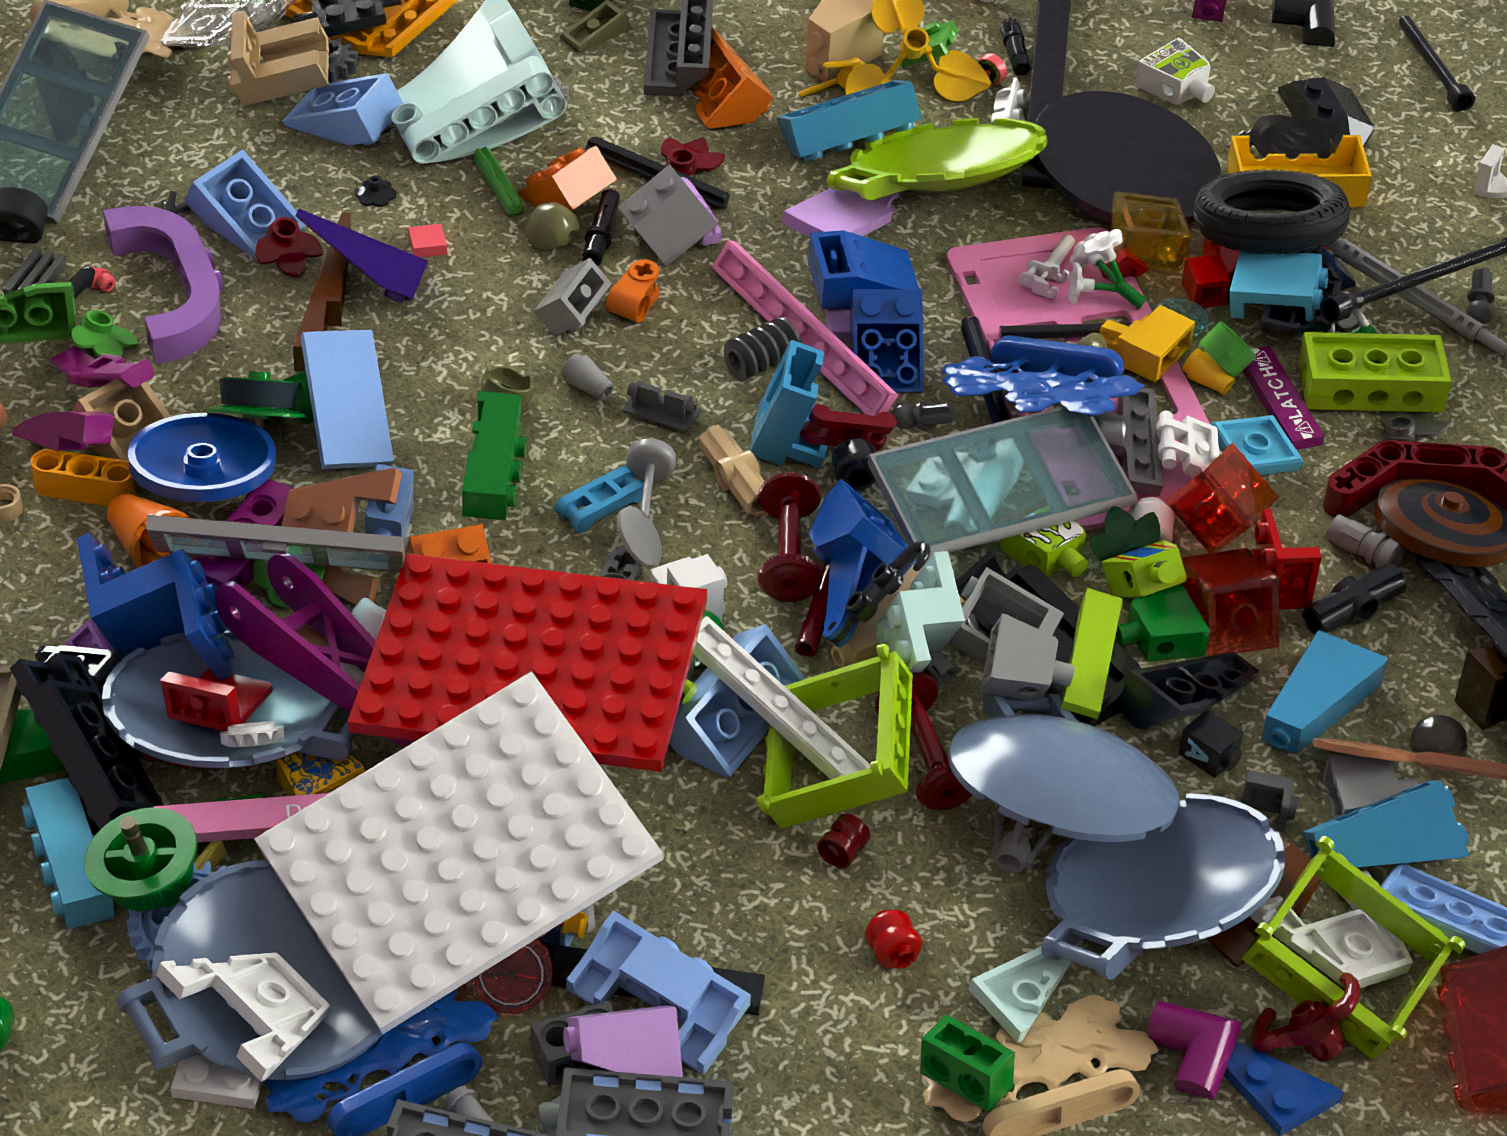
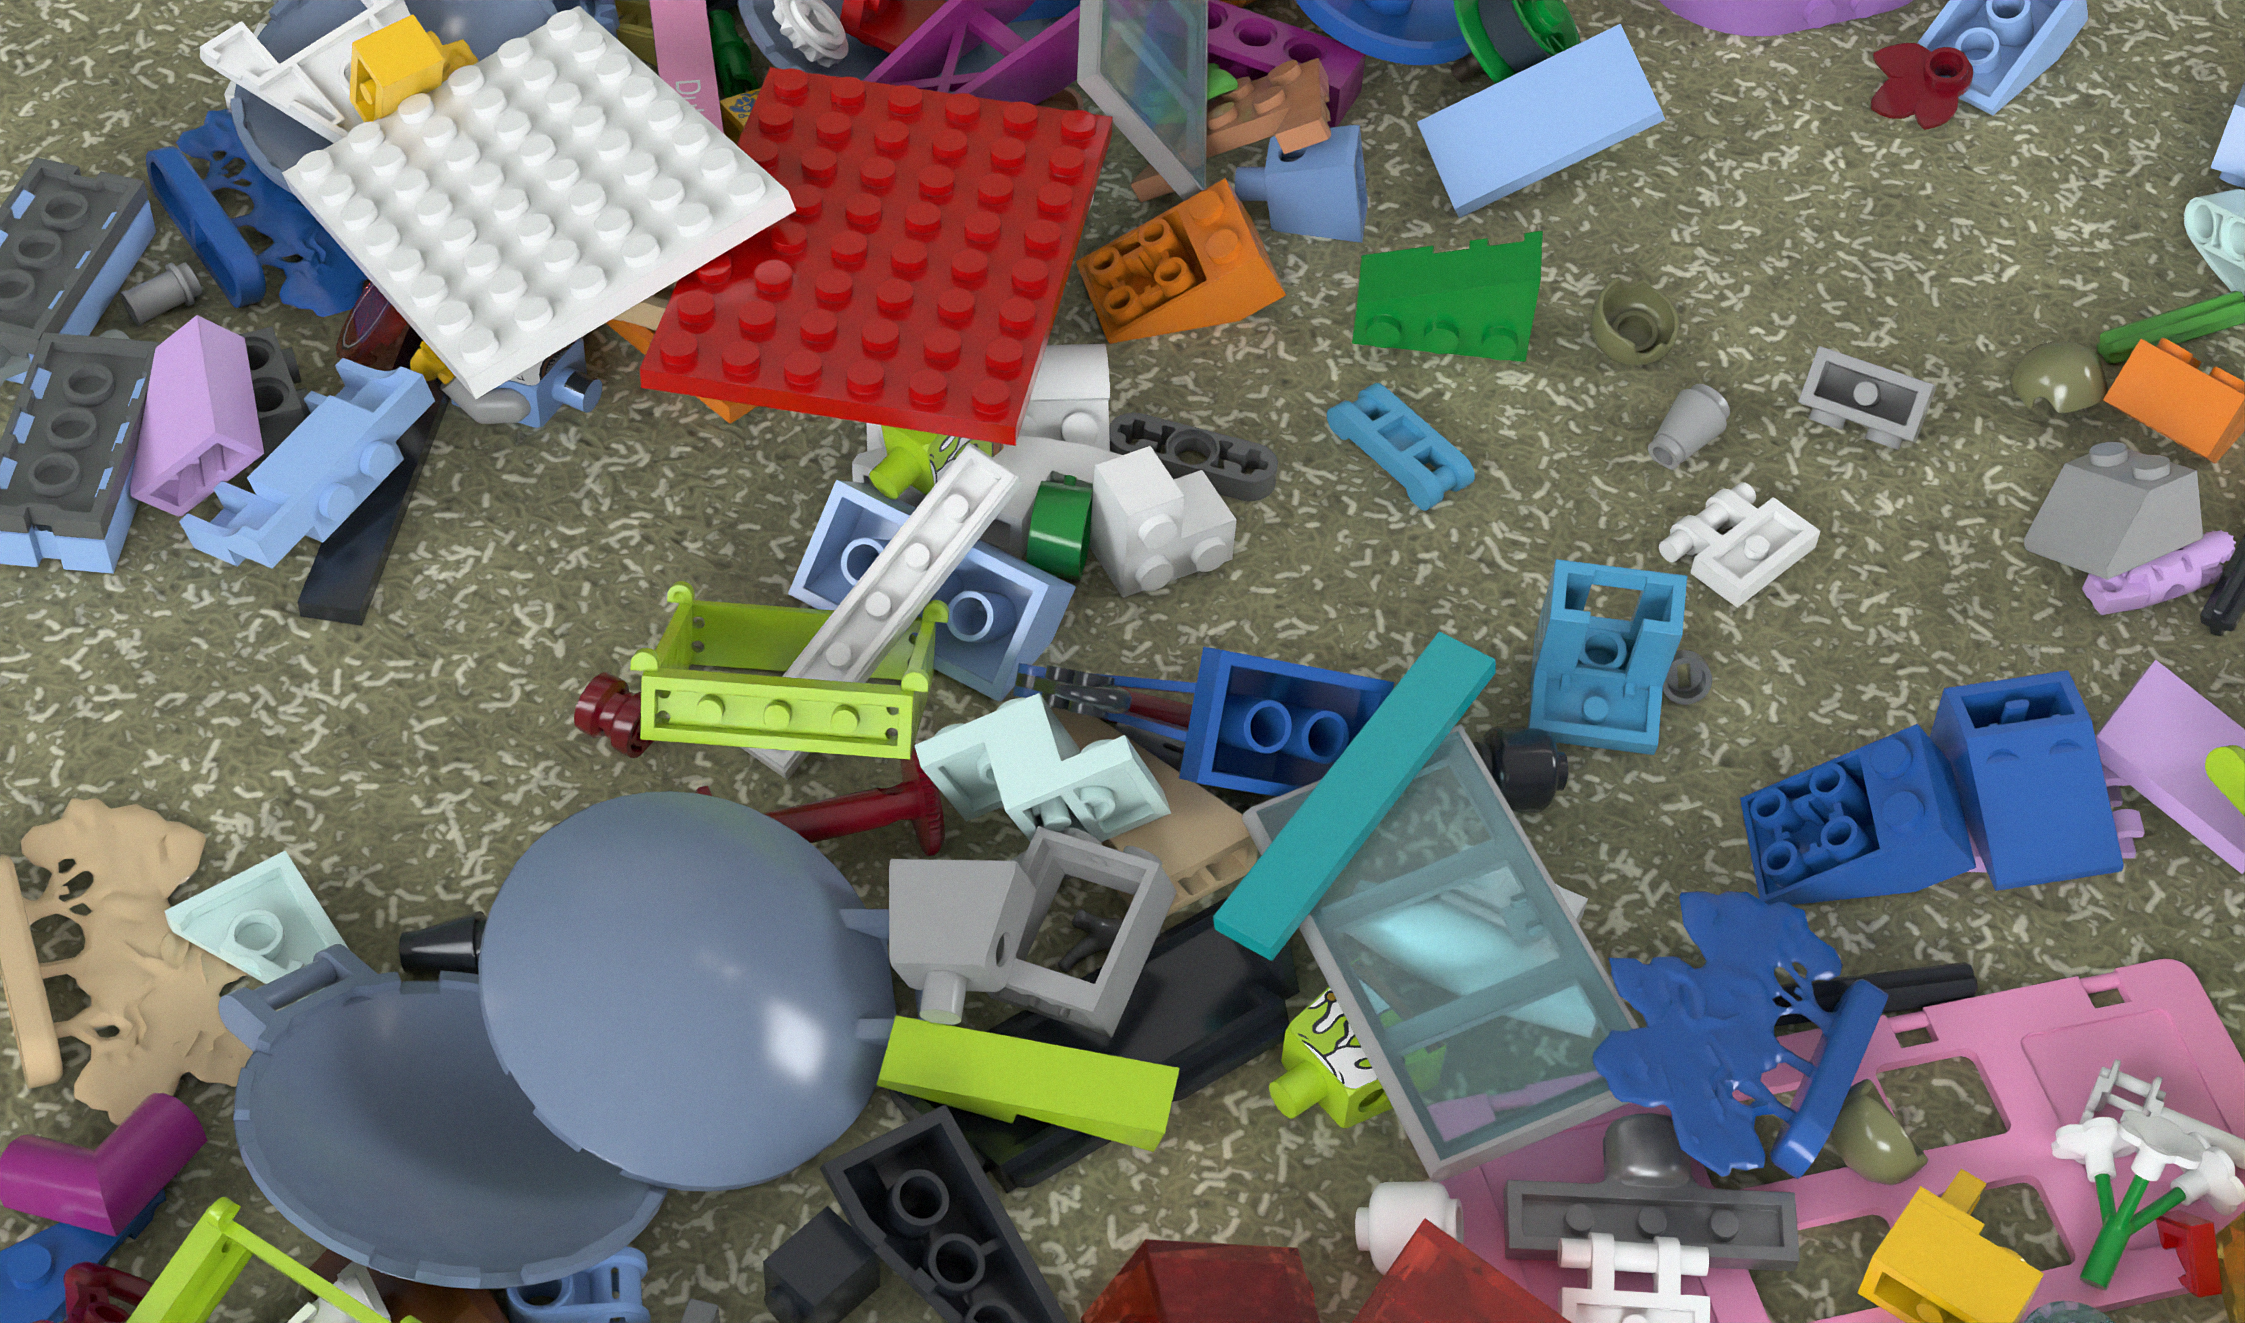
camera: 90 degrees right, 5 degrees up
(307, 947) = (399, 64): none -> yellow hinge
(326, 299) = (1819, 125): reddish brown slope -> none
(375, 192) = (2103, 189): black plant -> none
(382, 263) = (1882, 159): dark purple wedge -> none
(427, 240) = (1994, 245): coral tile -> none
(598, 235) = (2060, 445): black pin -> none
(634, 291) = (1913, 484): orange piece -> none
(651, 462) = (1299, 472): light grey piece -> none
(671, 410) = (1635, 518): dark grey hinge -> none
(682, 360) = (1748, 555): none -> white plate
(733, 468) = (1475, 610): tan piece -> none
(759, 348) = (1798, 651): dark grey piece -> none
(773, 300) = (1864, 715): bright pink tile -> none
(789, 574) = (1343, 655): dark red hose -> none
(833, 427) = (1593, 751): dark red plate -> none
(893, 939) = (400, 766): red piece -> none
(918, 498) = (1354, 796): none -> teal tile
(923, 415) = (1680, 869): dark grey axle -> none
(967, 1062) = (87, 814): green brick -> none
(1020, 903) = (444, 946): none -> black cone
(1052, 331) = (1971, 1130): black bar -> none
(1124, 534) = (1347, 1173): dark green plate -> none
(1150, 567) = (1256, 1188): lime torso -> none
(1165, 626) = (1125, 1204): green torso -> none

